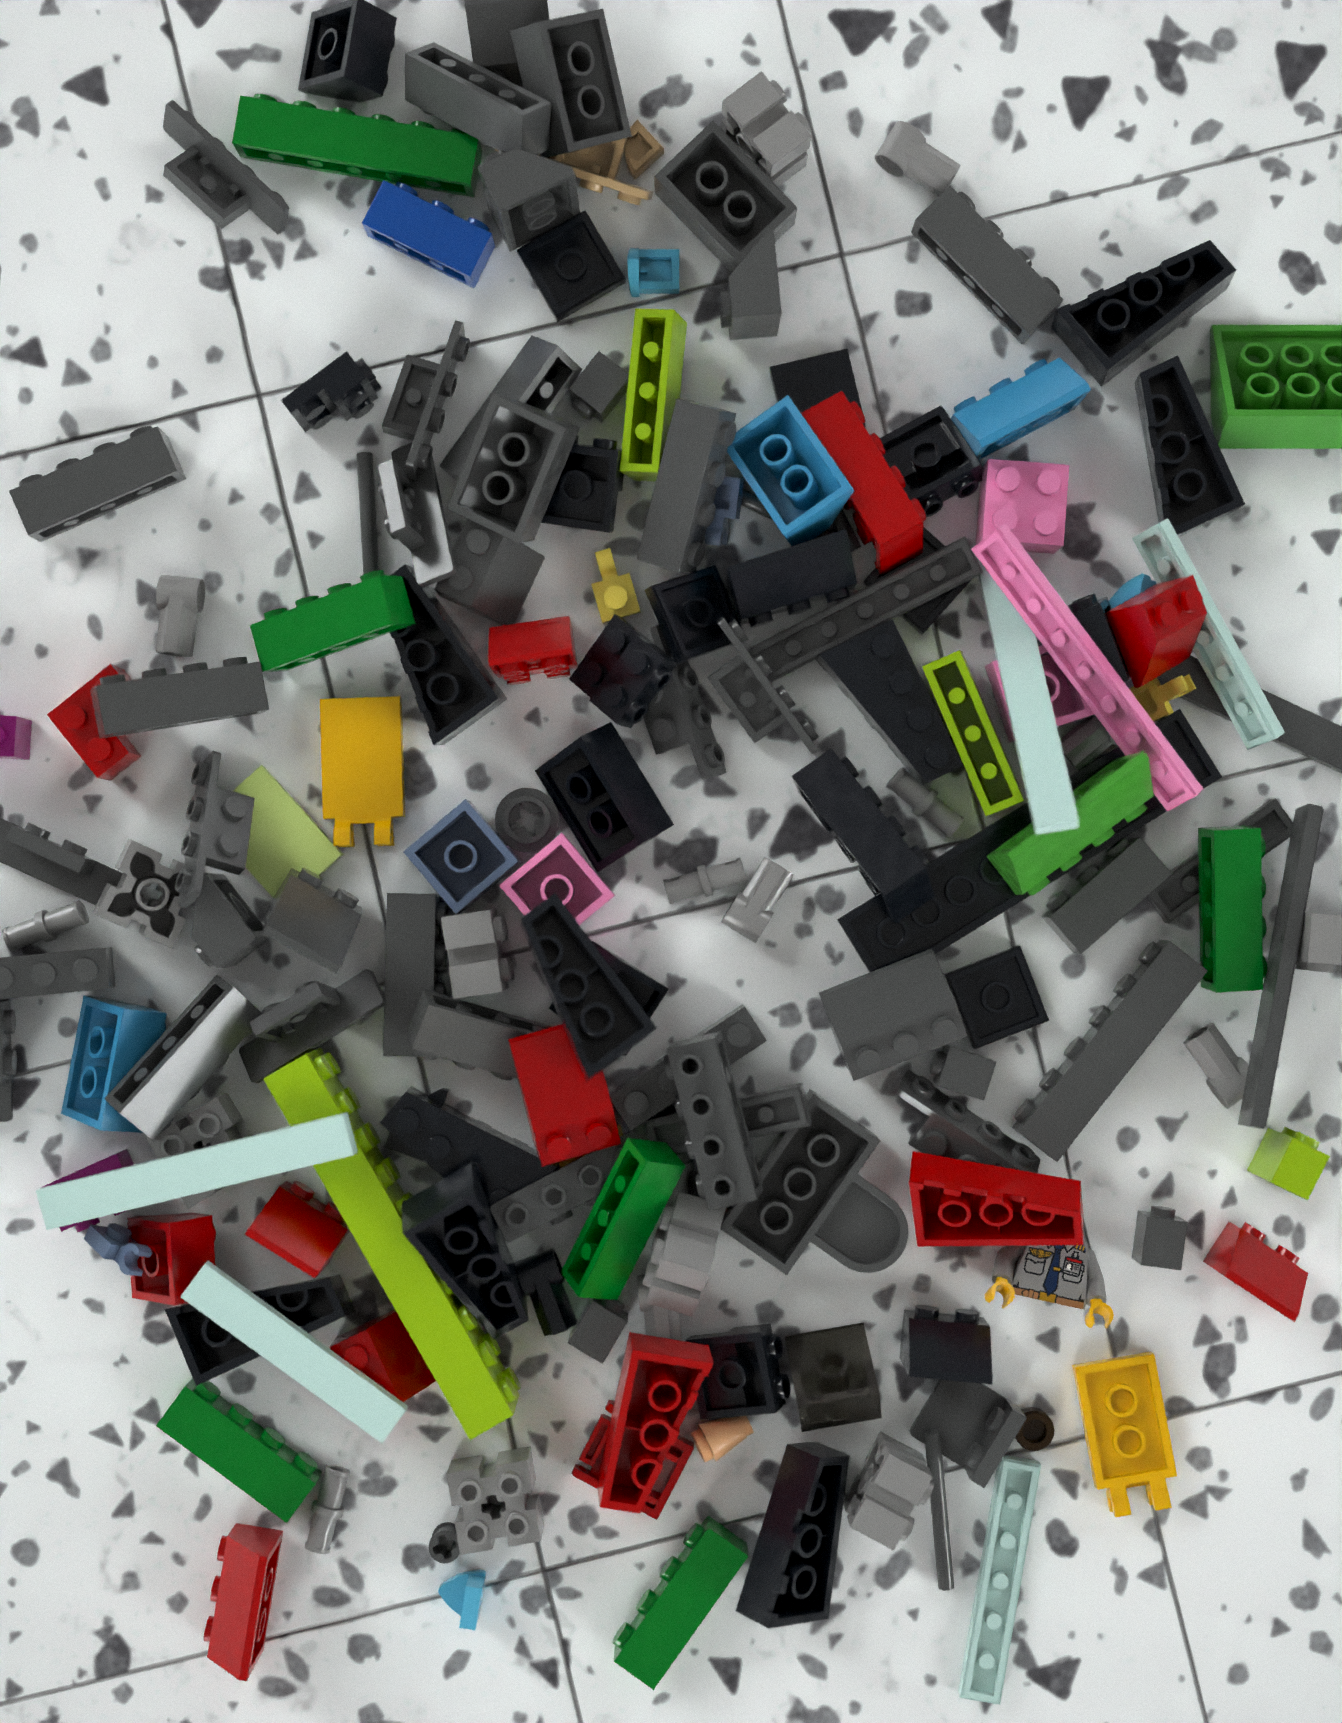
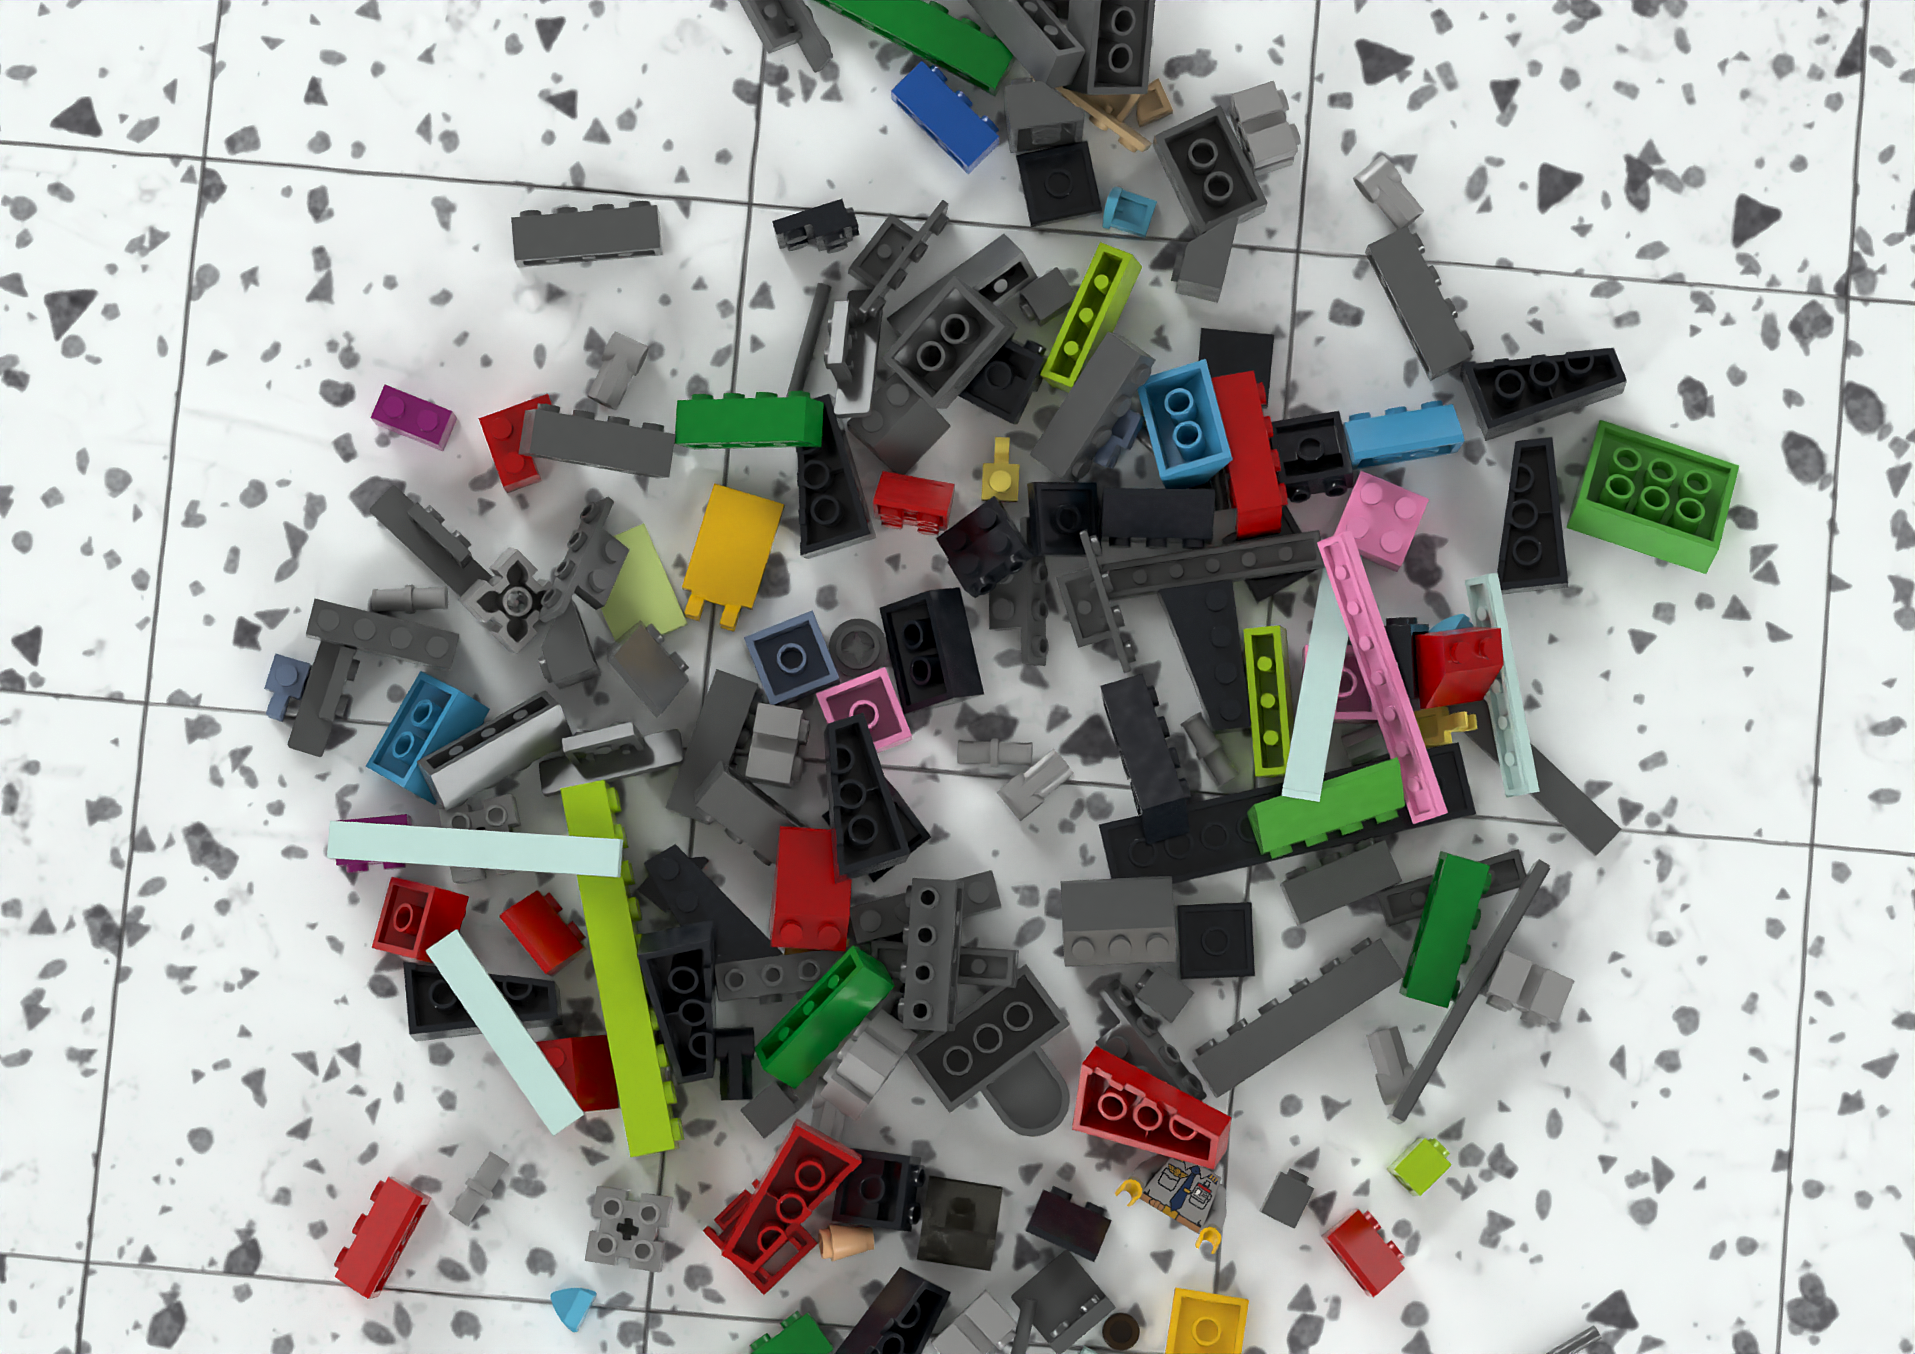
camera: 25 degrees right, 5 degrees down
(117, 1245) = (378, 892): sand blue plate -> none
(240, 1448) = (422, 1108): green brick -> none
(441, 1553) = (564, 1261): dark grey axle -> none

